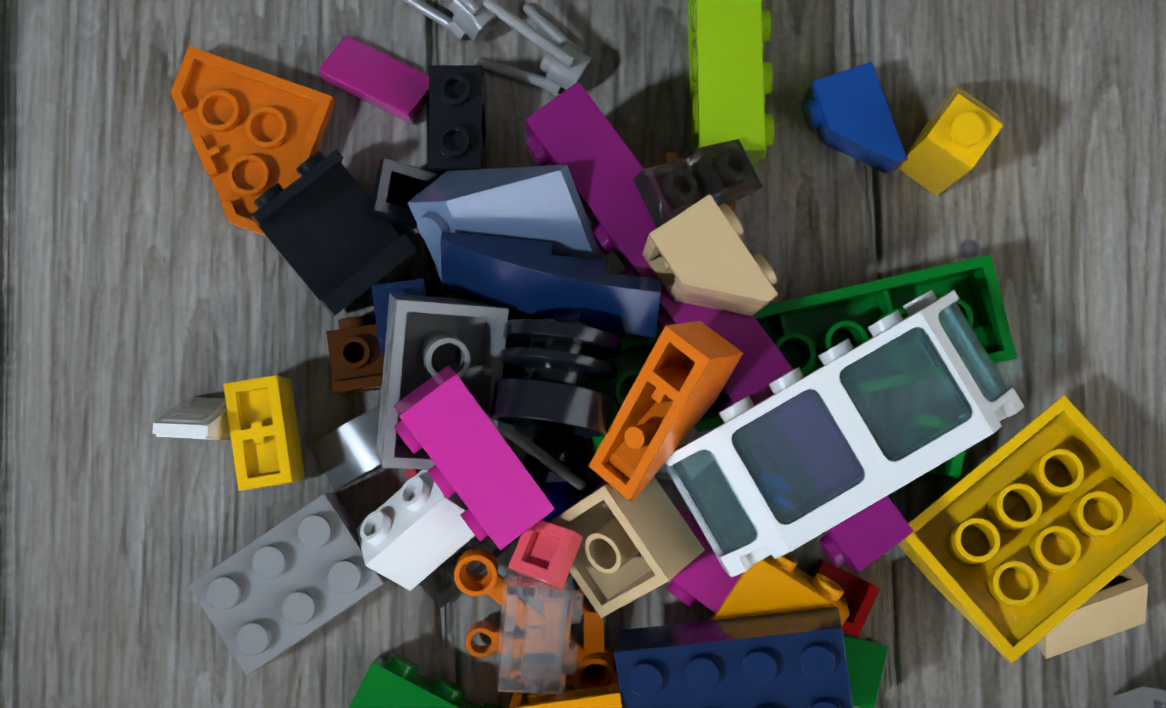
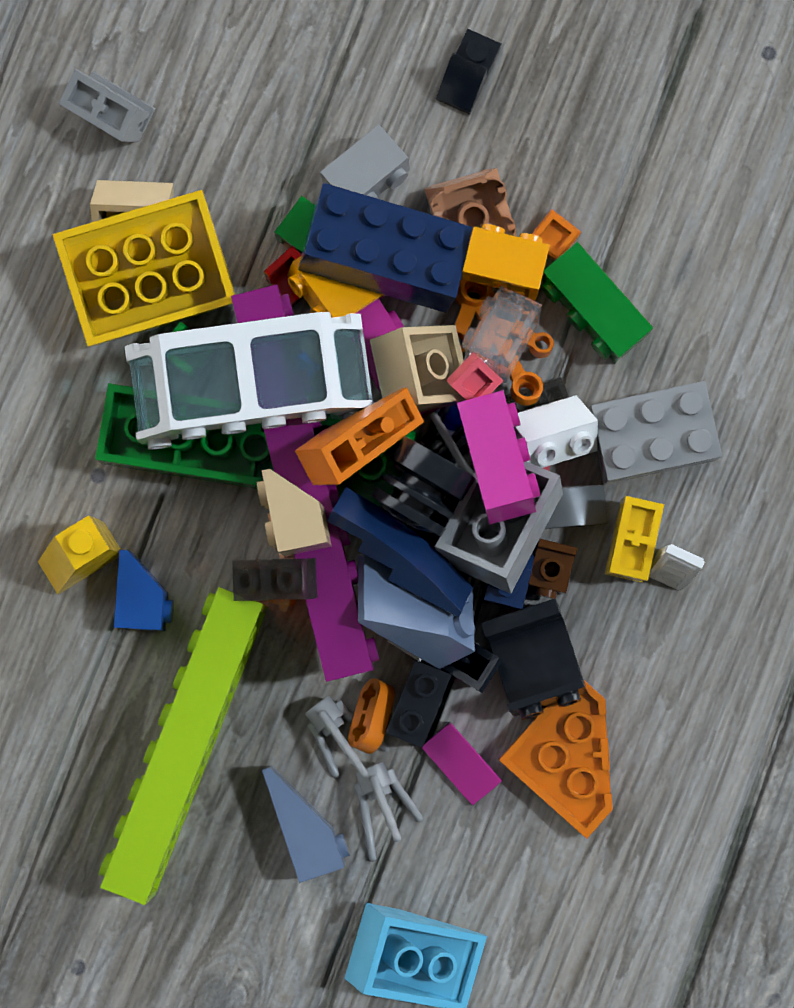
camera: 155 degrees left, 0 degrees up
(508, 84) = (371, 716): none -> orange beam

